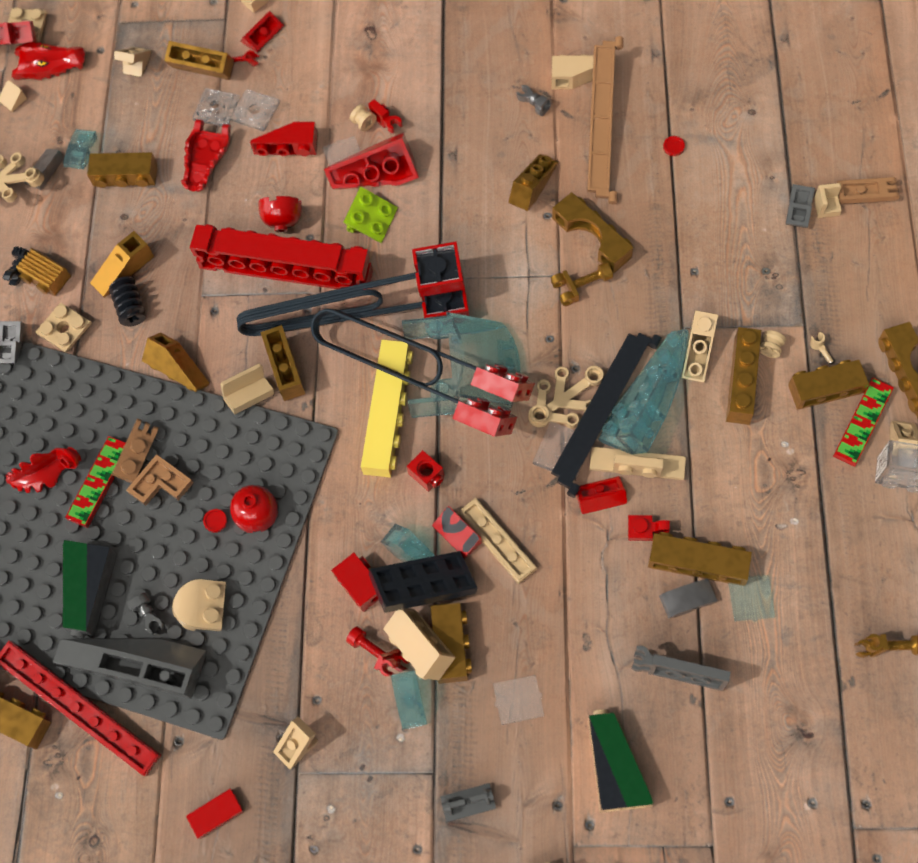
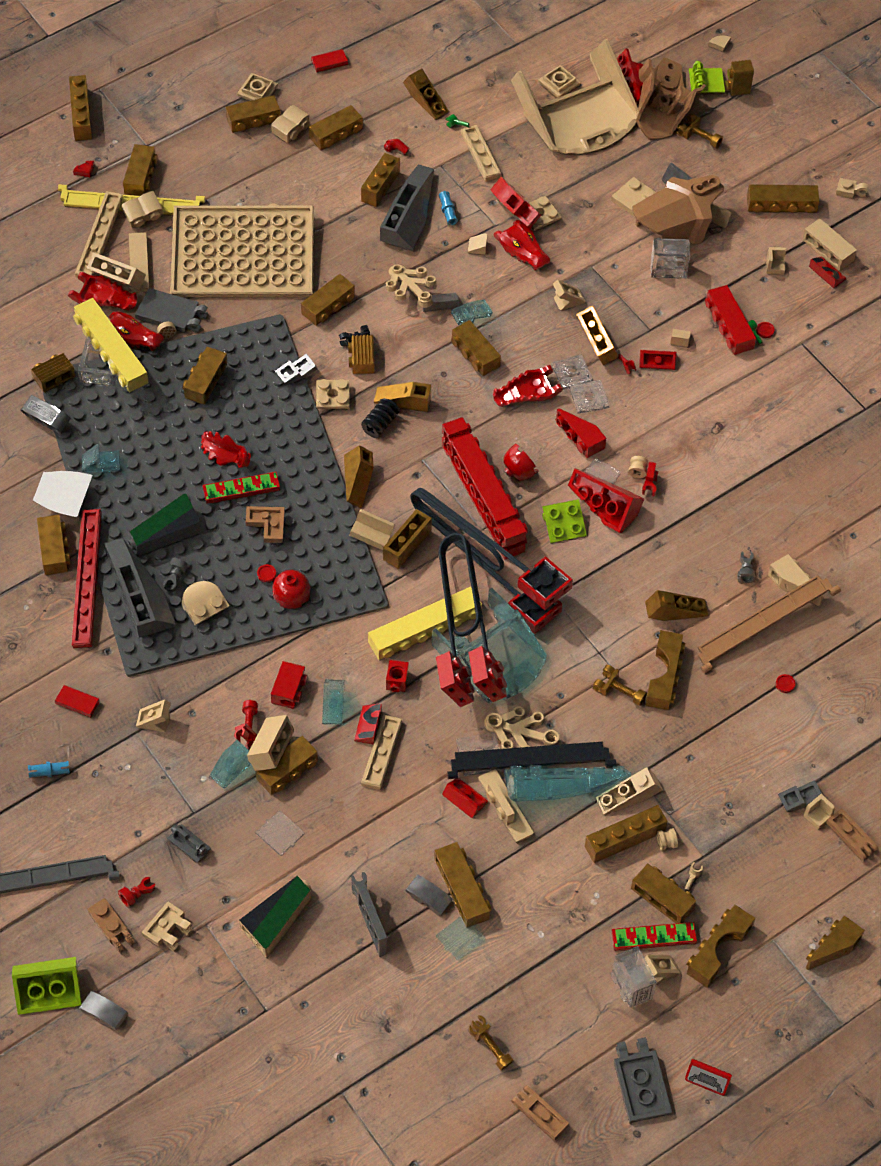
camera: 45 degrees right, 10 degrees down
(134, 452) = (277, 493): medium nougat hinge -> none
(422, 581) = (315, 719): black plate -> none
(642, 528) = (460, 834): red plate -> none

